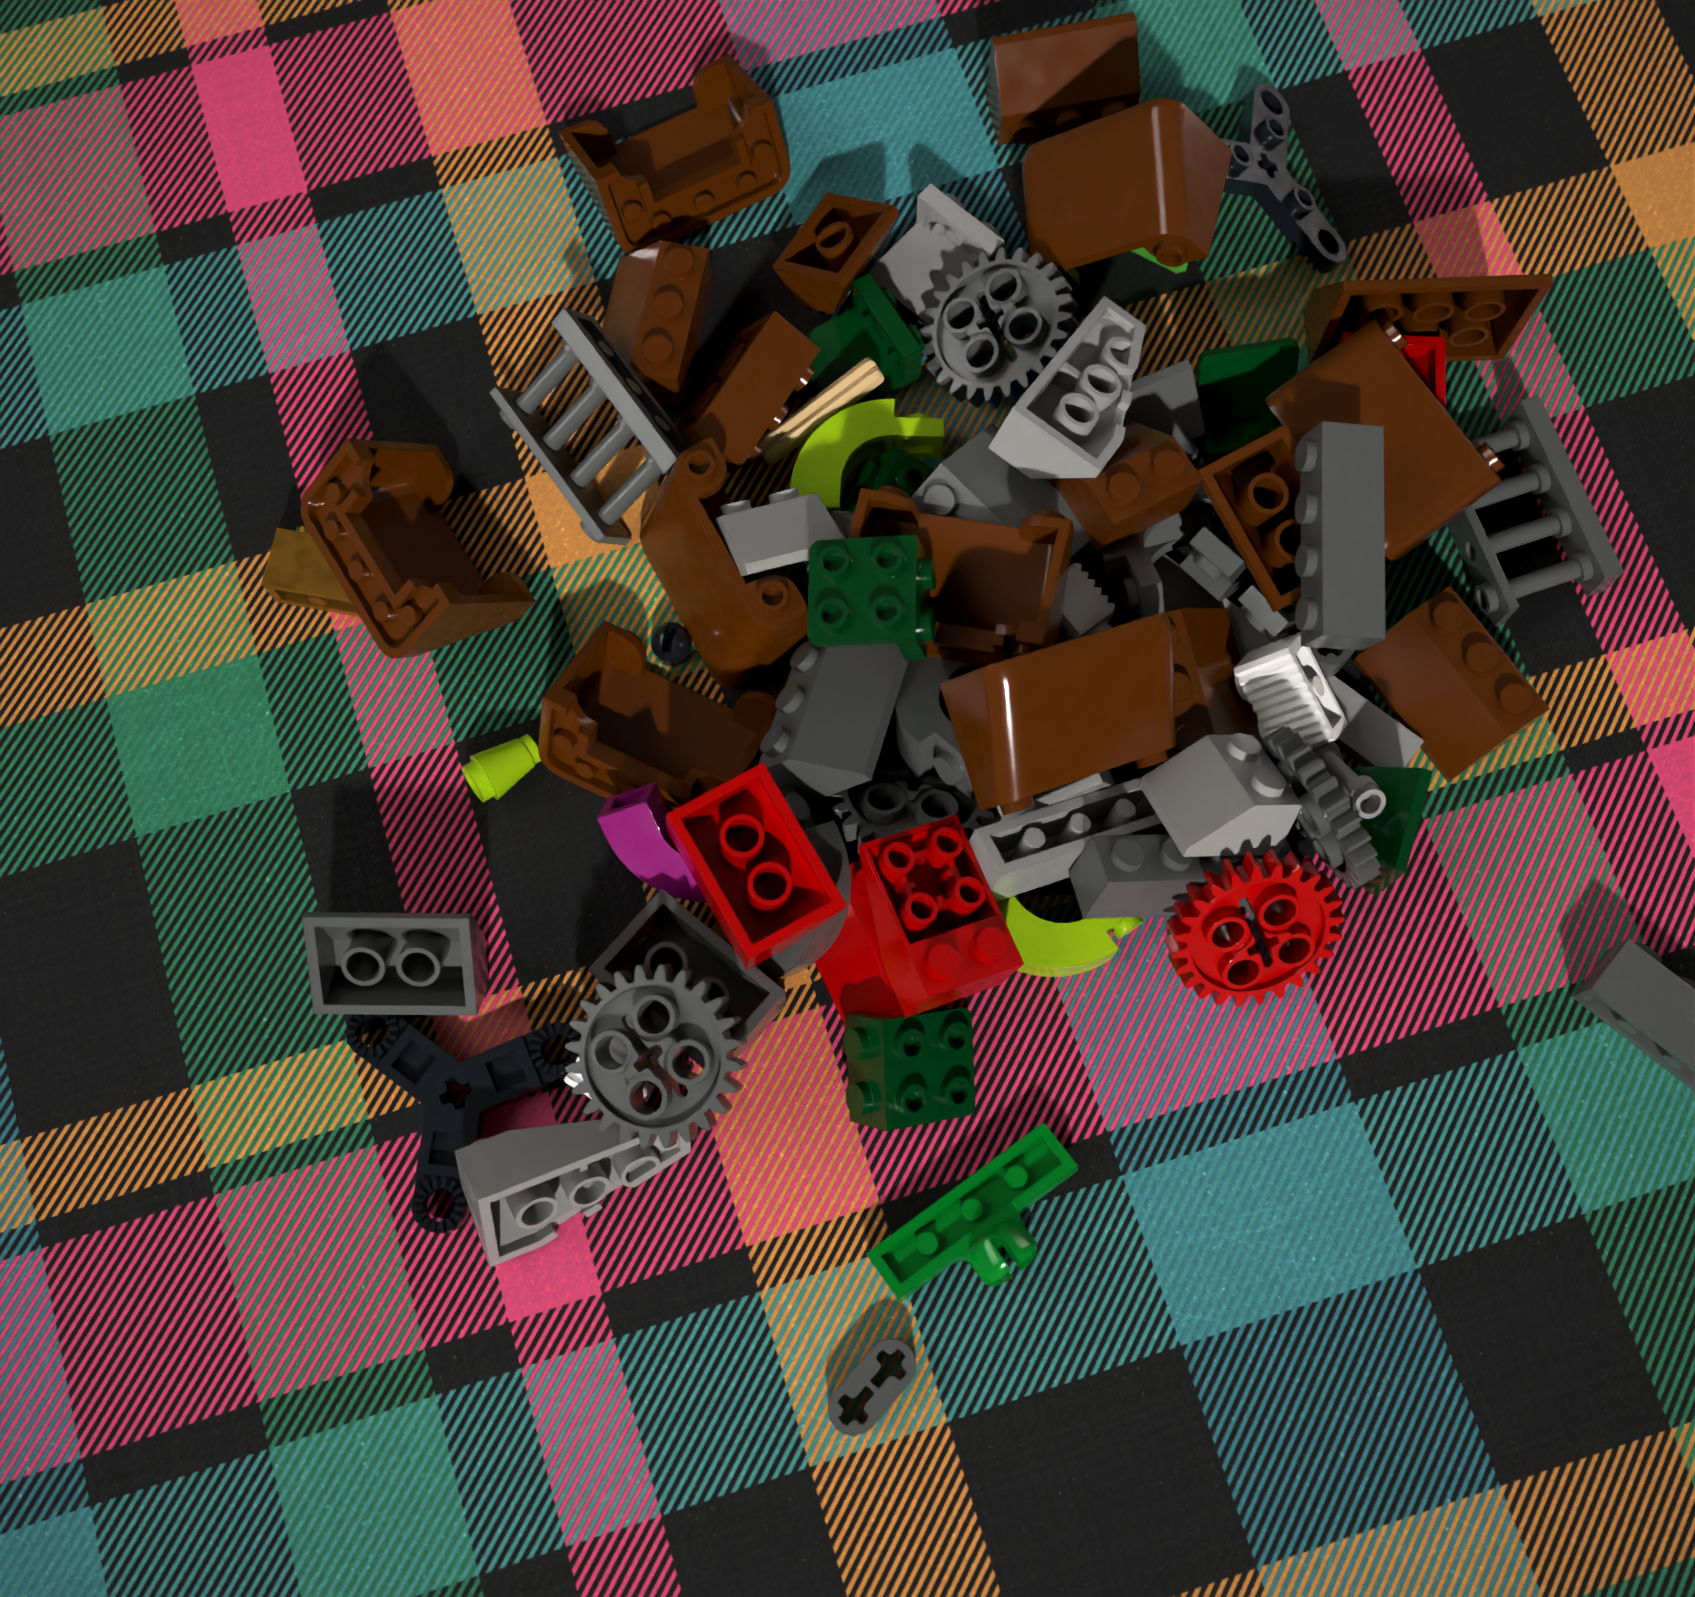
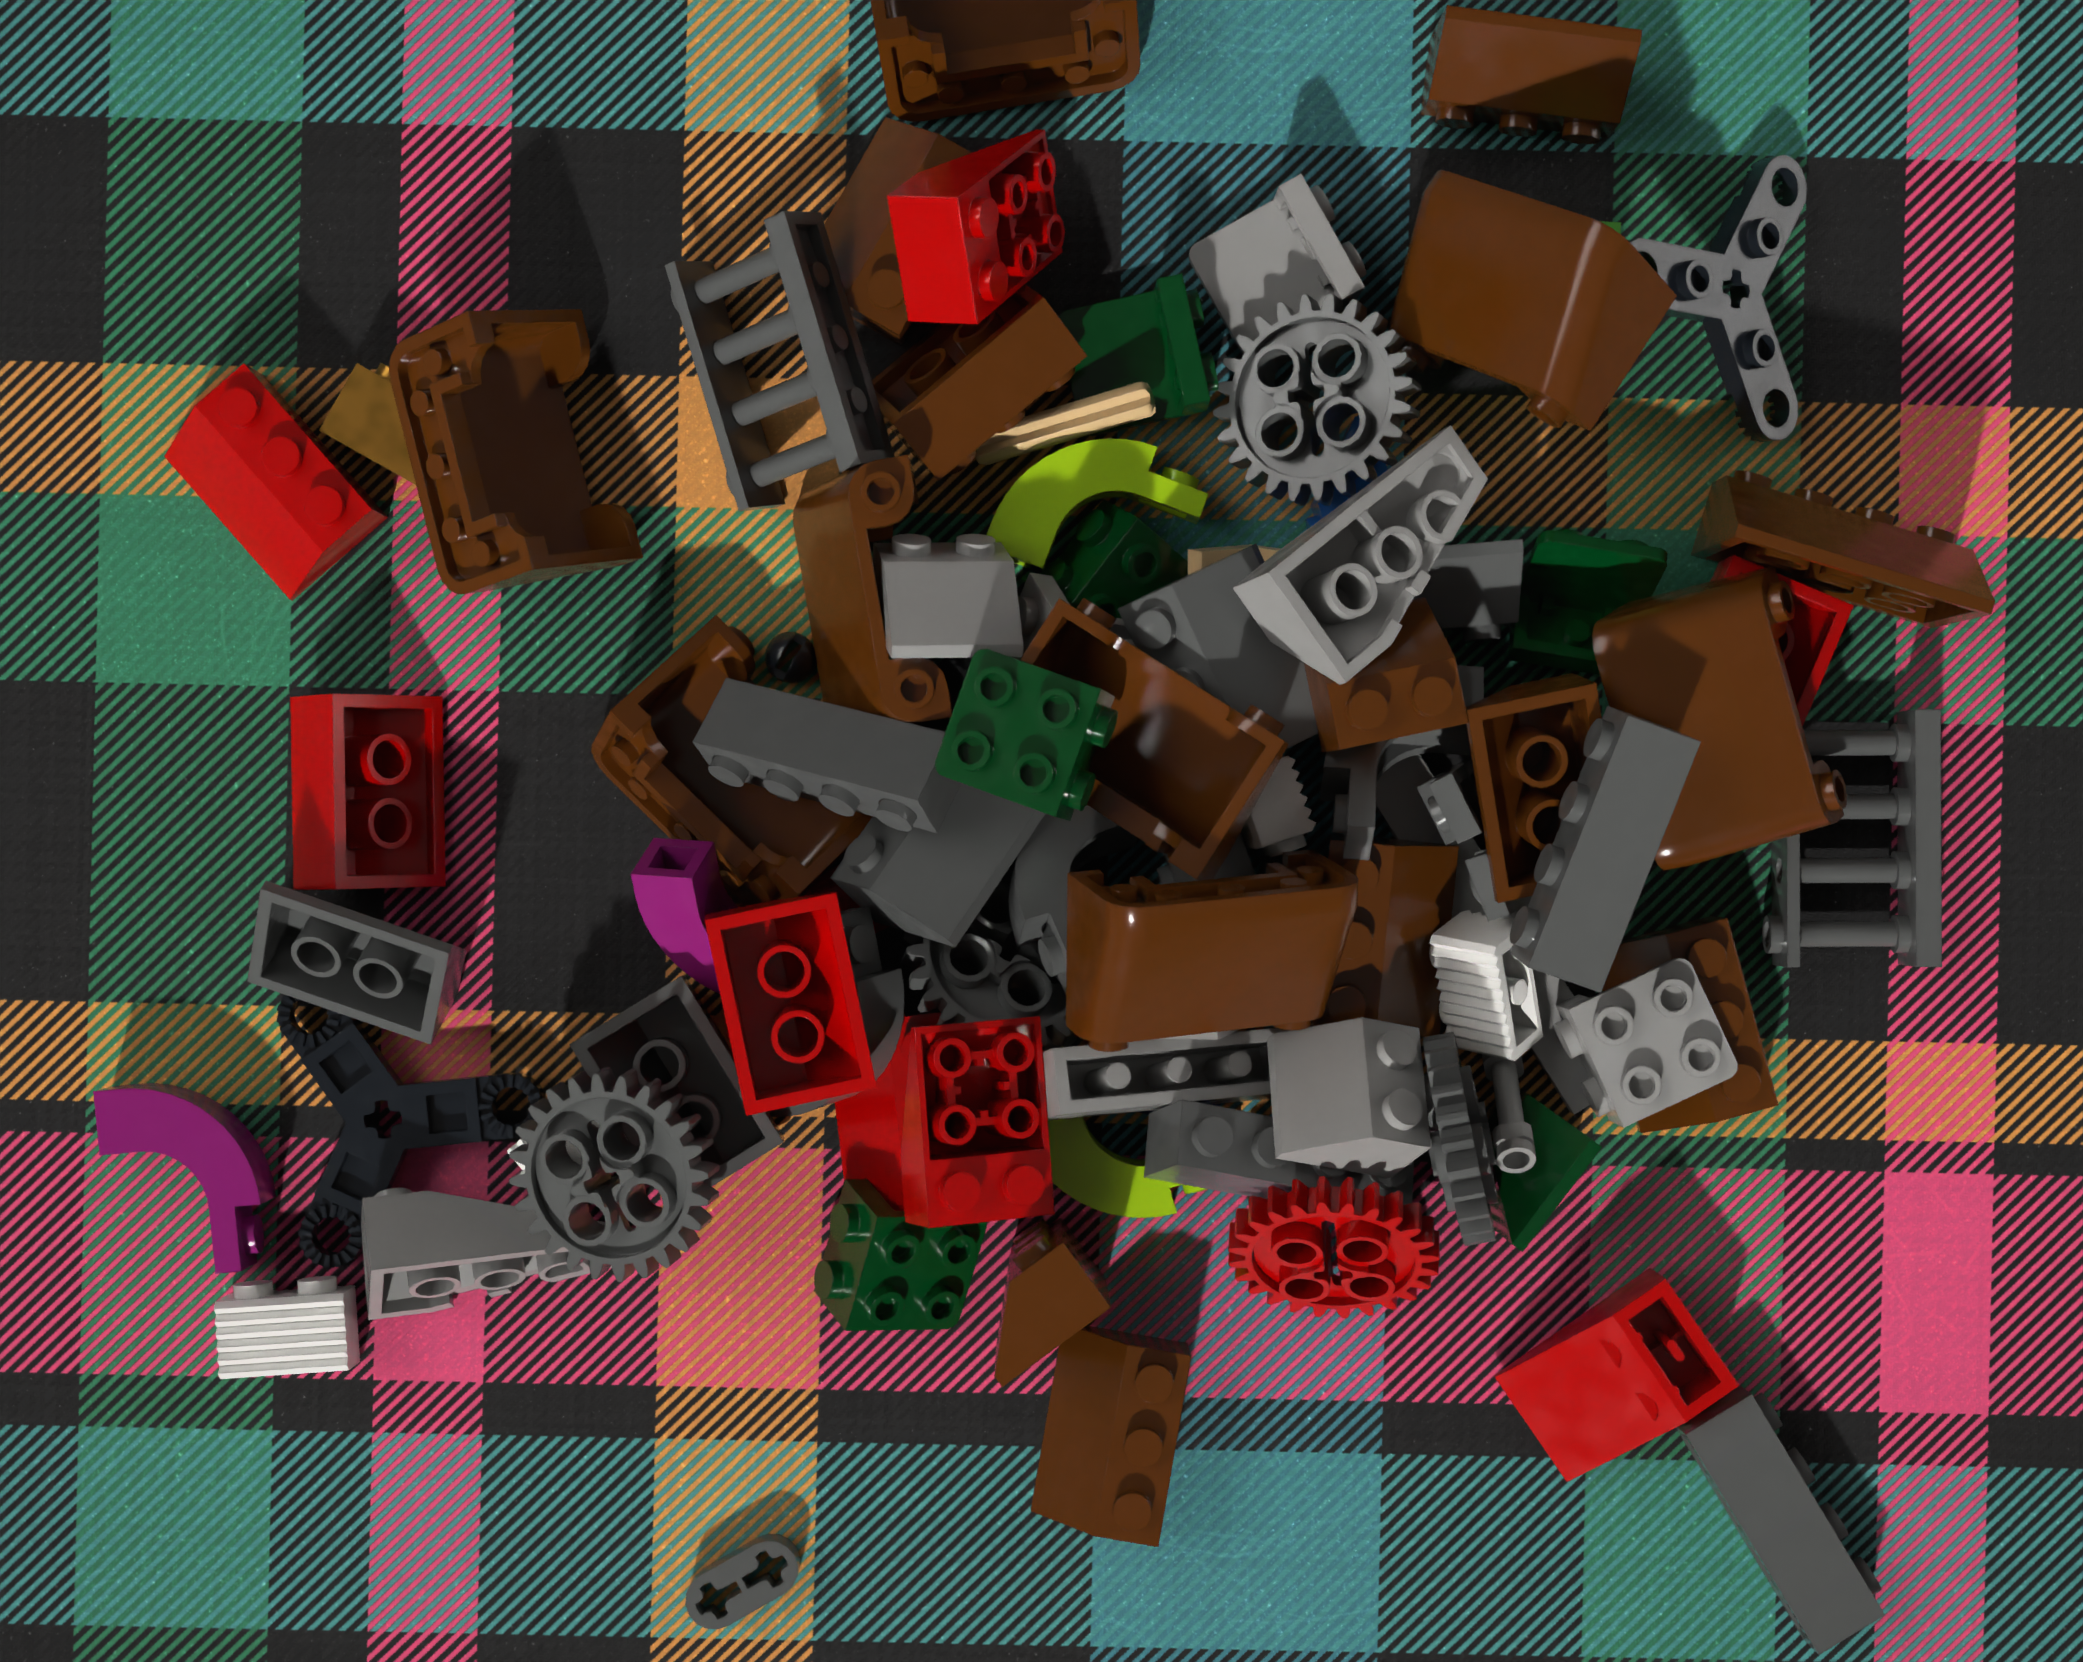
camera: 15 degrees right, 15 degrees up
(235, 639) = (272, 481): none -> red slope
(280, 1154) = (205, 1141): none -> magenta arch
(371, 837) = (367, 791): none -> red slope
(423, 1298) = (287, 1329): none -> white brick
(500, 767) = (543, 748): lime cone -> none
(708, 286) = (976, 229): none -> red slope
(724, 680) = (826, 755): none -> dark grey brick
(834, 249) = (1152, 218): reddish brown slope -> none
(977, 1219) = (915, 1447): green plate -> none
(1038, 1033) = (1047, 1297): none -> reddish brown slope
(1132, 1150) = (1112, 1434): none -> reddish brown slope
(1427, 695) = (1646, 1042): none -> light grey bracket
(1516, 965) = (1616, 1377): none -> red slope

